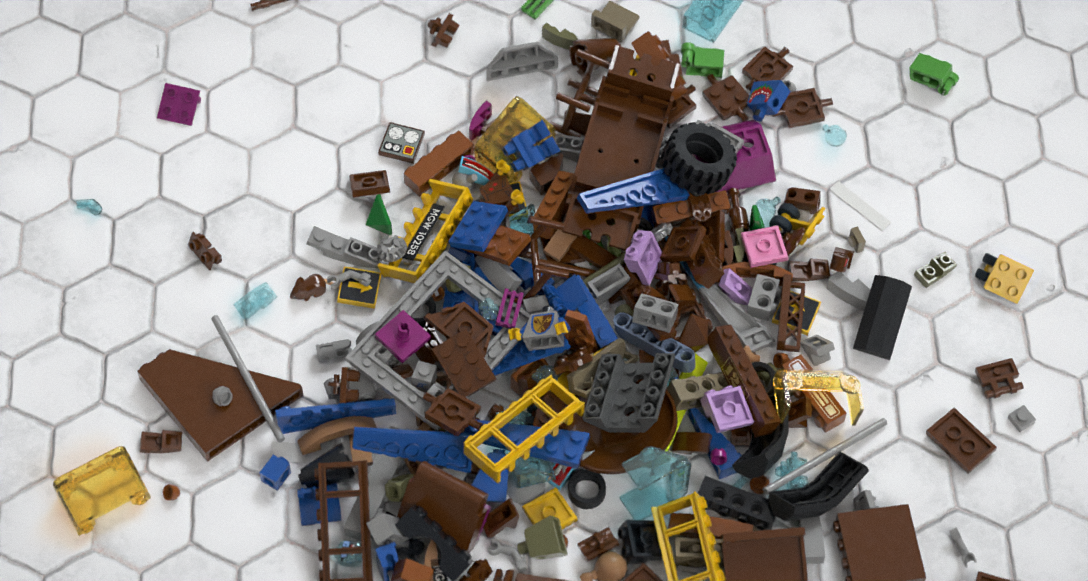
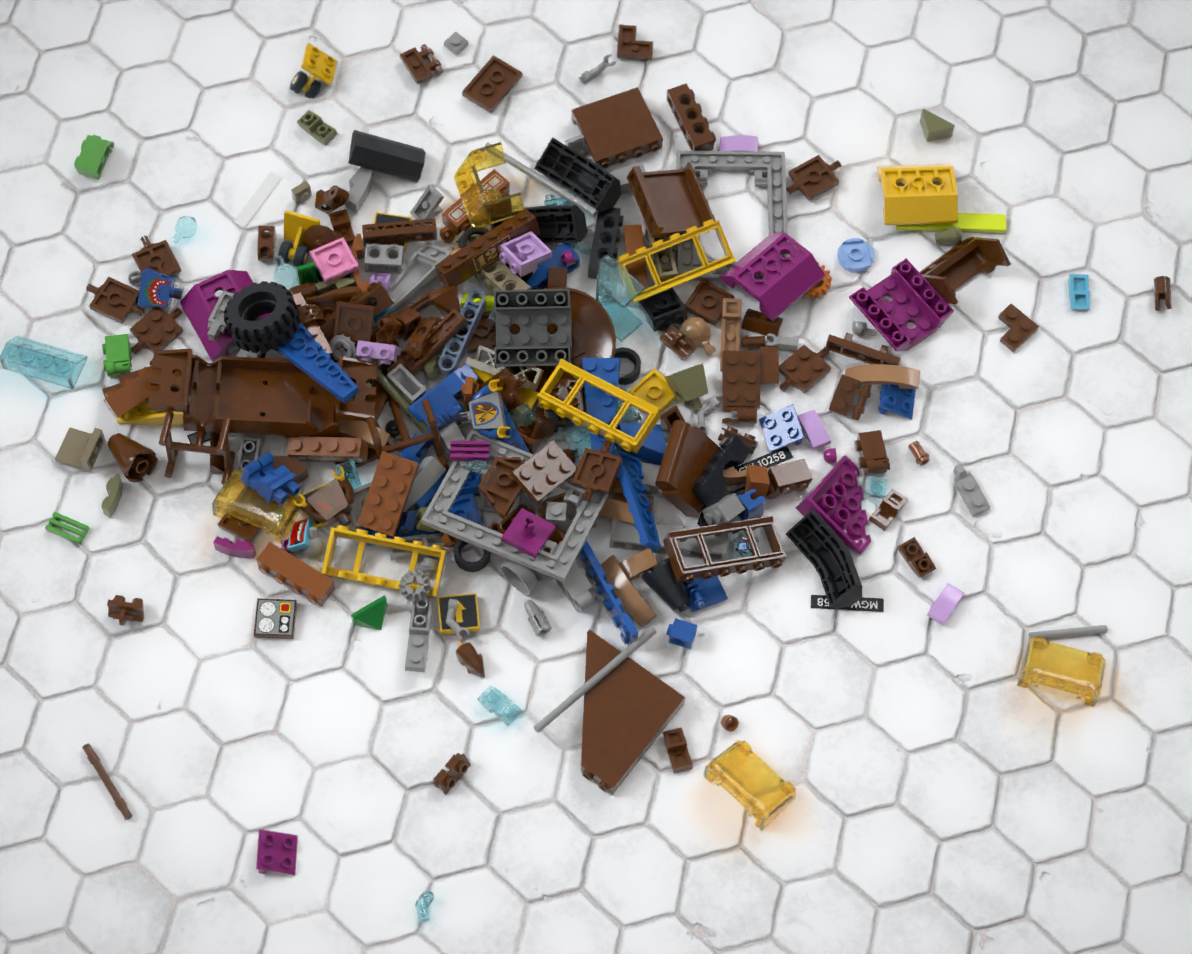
camera: 105 degrees left, 5 degrees up
(222, 396) = (623, 696): light grey plate -> none
(347, 375) = (586, 583): reddish brown hips -> none
(369, 183) = (337, 631): reddish brown tile -> none
(396, 487) = (671, 514): olive rock -> none
(423, 231) = (377, 567): black sticker -> none
(478, 226) = (378, 504): blue plate -> none
(521, 60) = (151, 527): light grey wedge -> none
(655, 313) = (442, 321): light grey brick -> none

